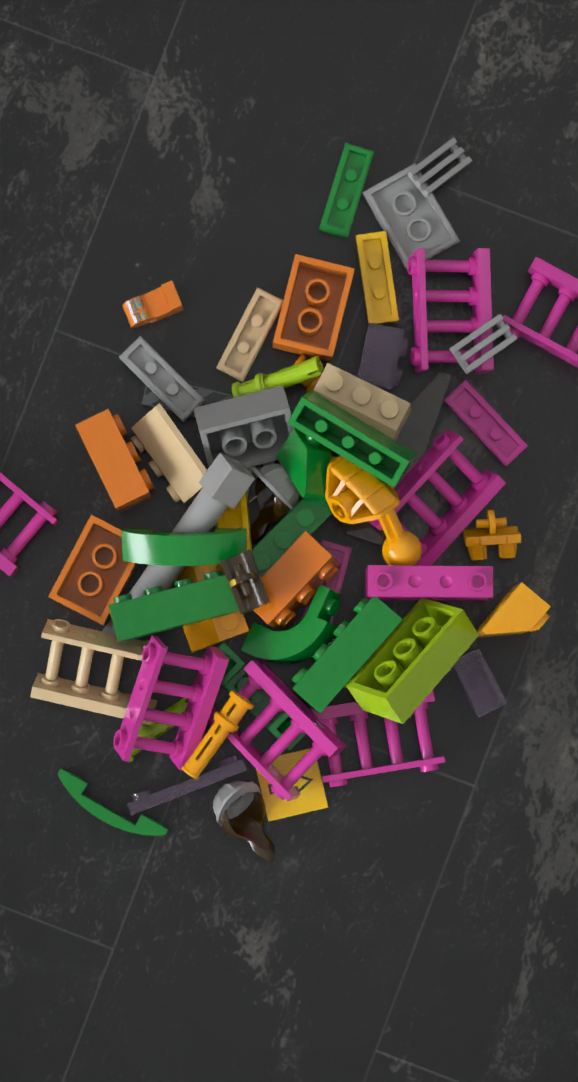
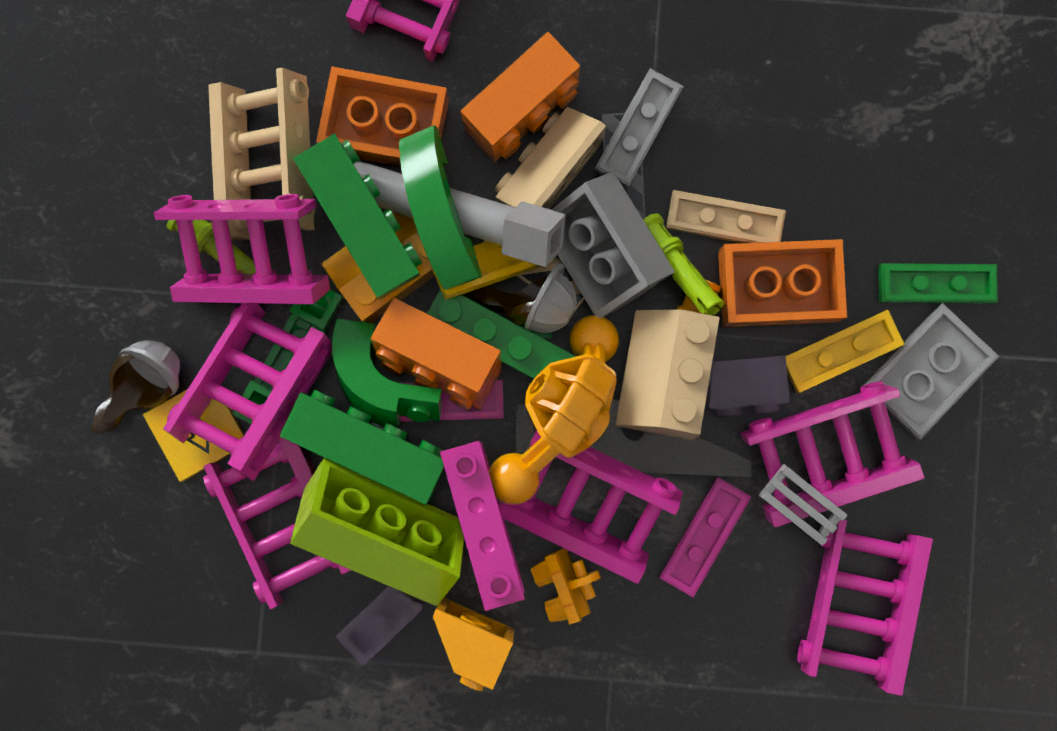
camera: 80 degrees right, 0 degrees up
(76, 787) = (118, 172): green slope -> none
(144, 800) = (125, 260): clear purple plate -> none
(153, 305) = (725, 93): orange leg -> none
(225, 722) = (238, 324): light orange pin -> none
(245, 582) = (412, 293): dark brown hips -> none
(305, 464) = (587, 326): green slope -> none
(352, 438) = (632, 374): green brick -> none
(456, 153) = (1027, 403): light grey tile -> none

